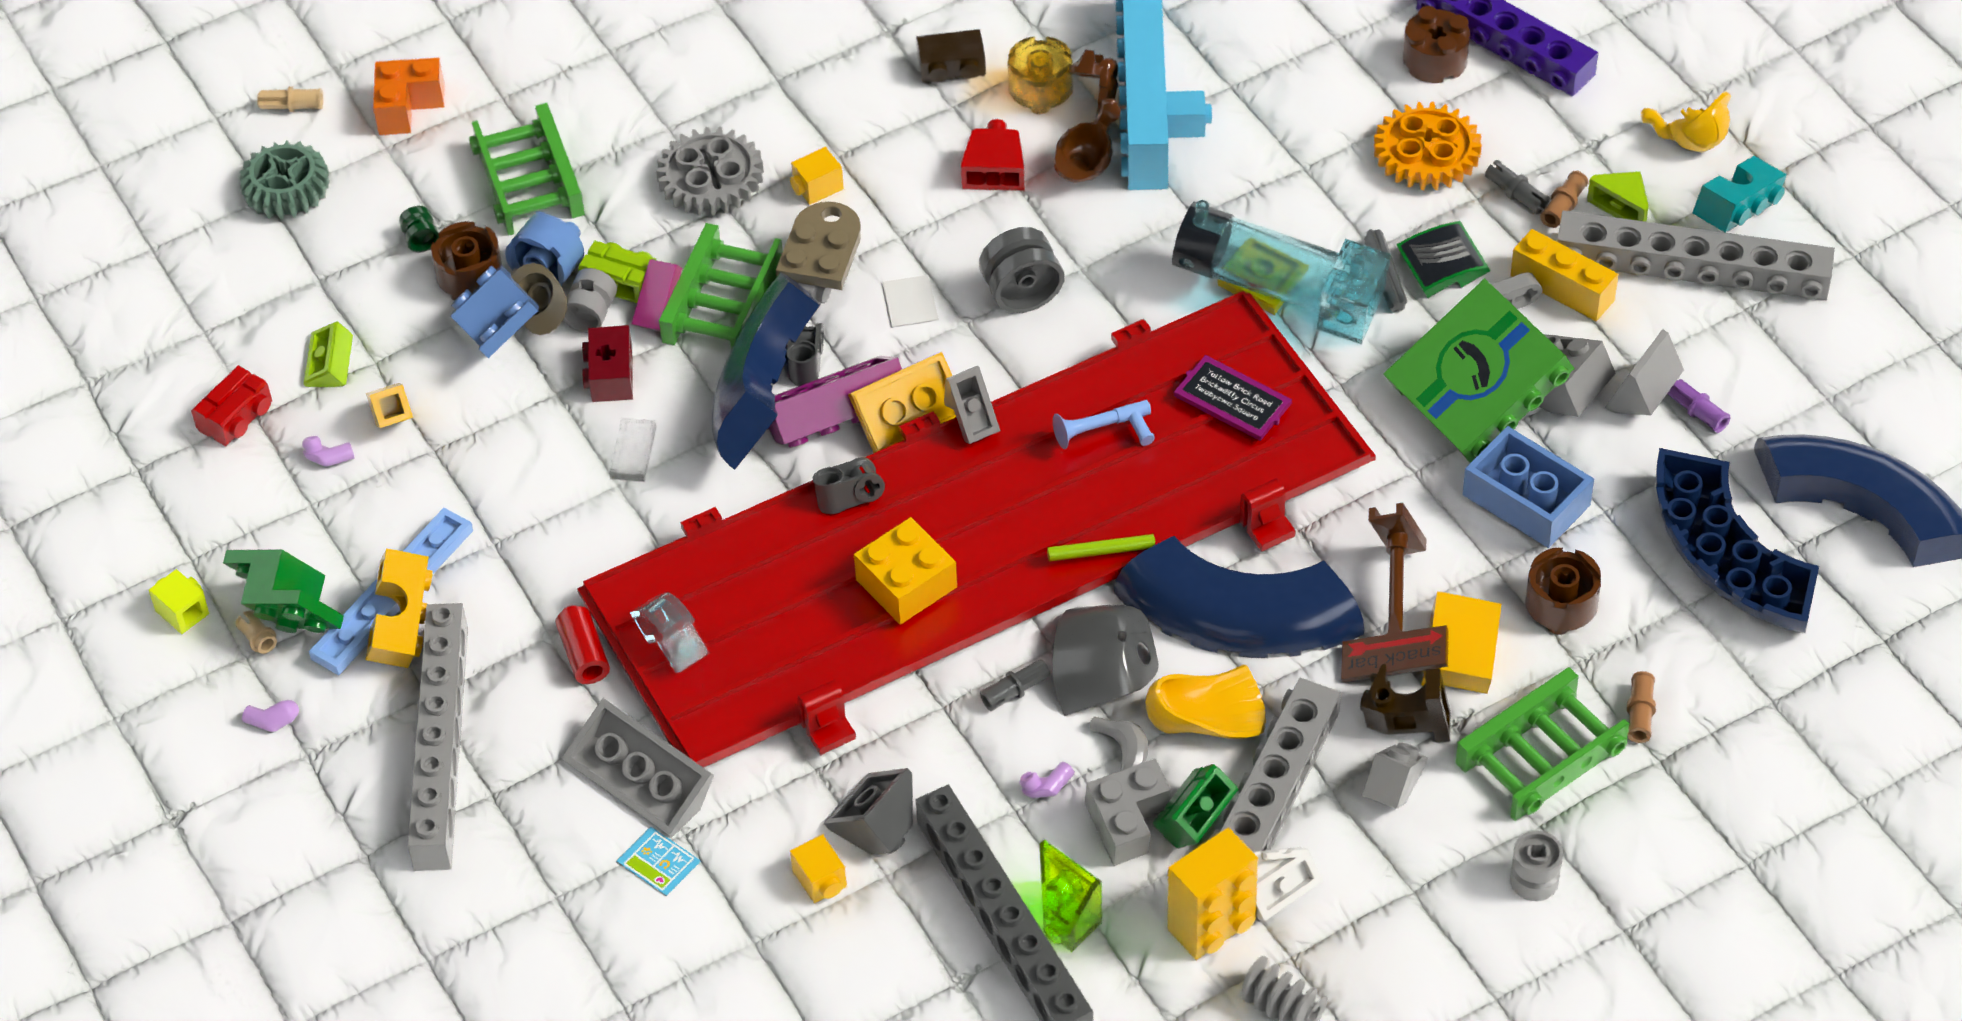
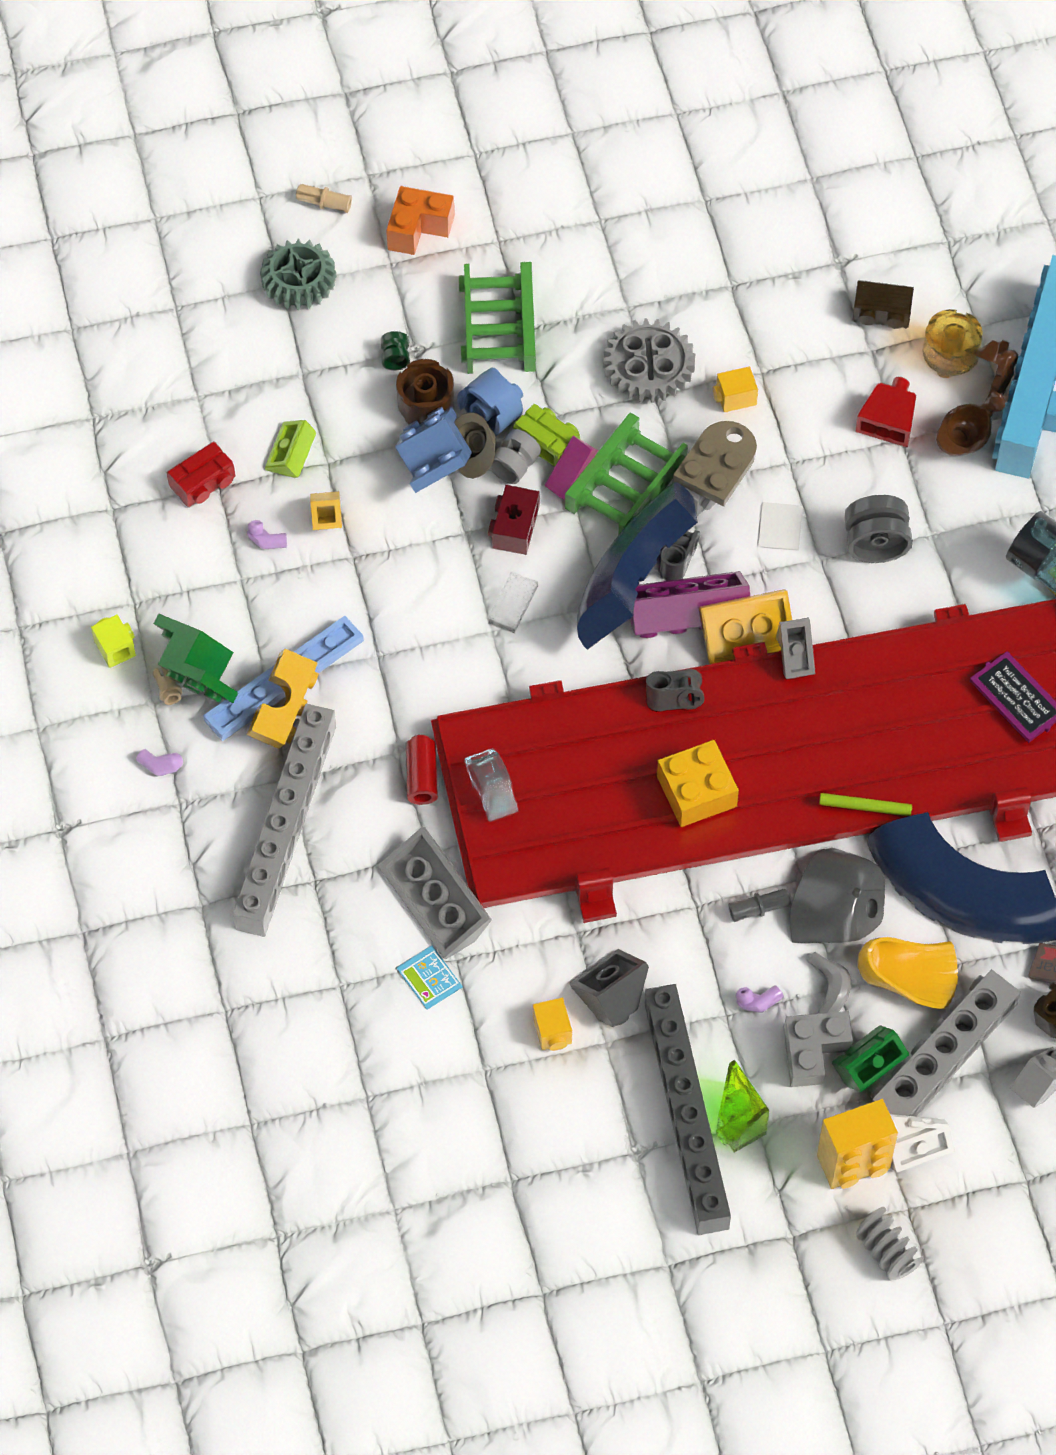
camera: 15 degrees right, 10 degrees up
(1067, 429) = (928, 688): light blue piece -> none

